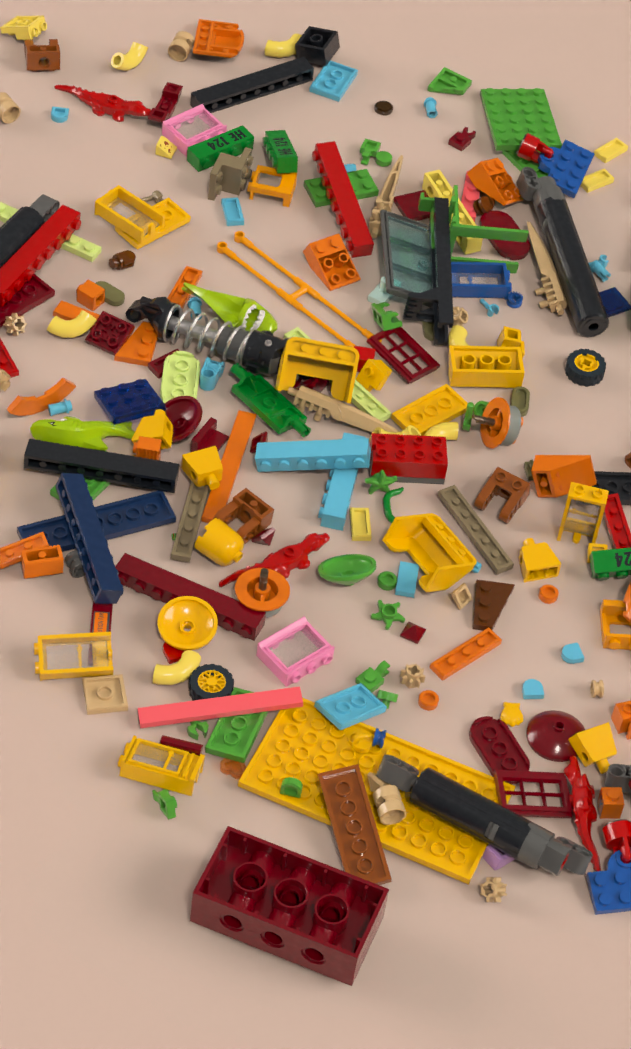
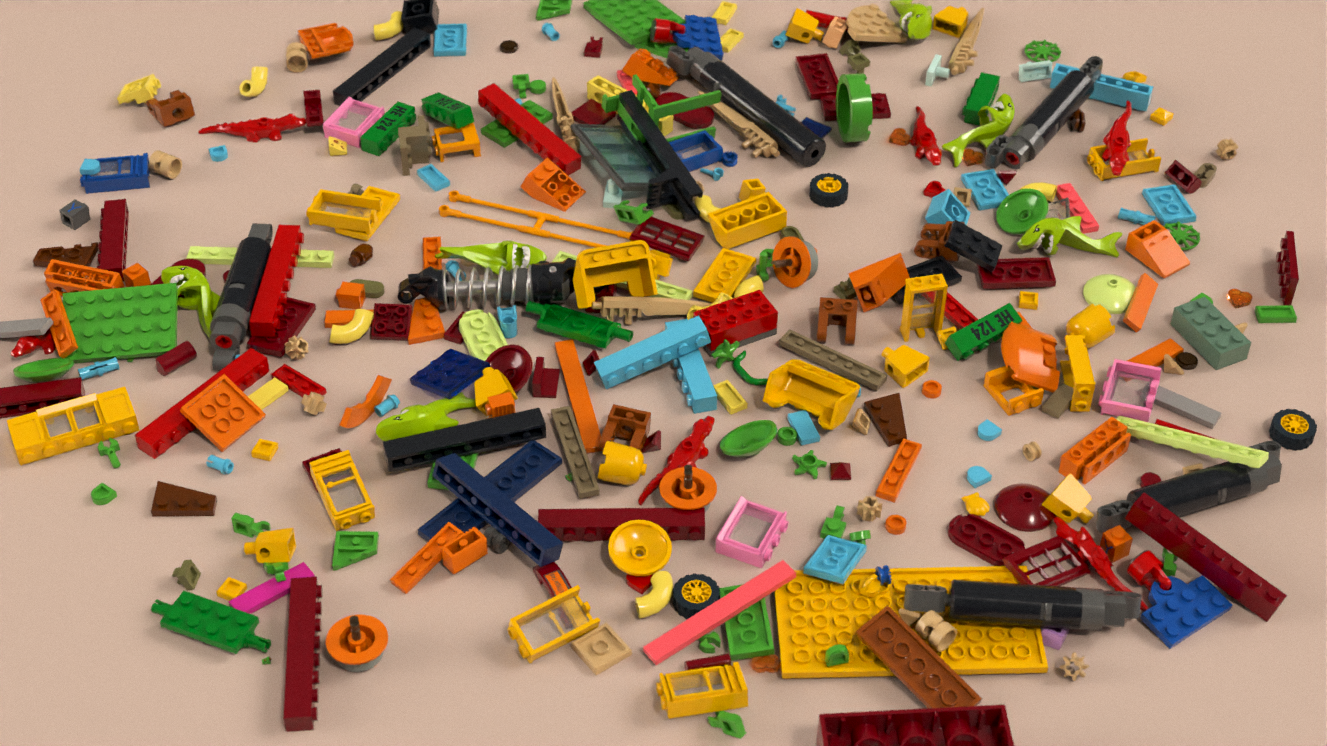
camera: 20 degrees left, 5 degrees down
(203, 467) = (561, 402): yellow torso -> none

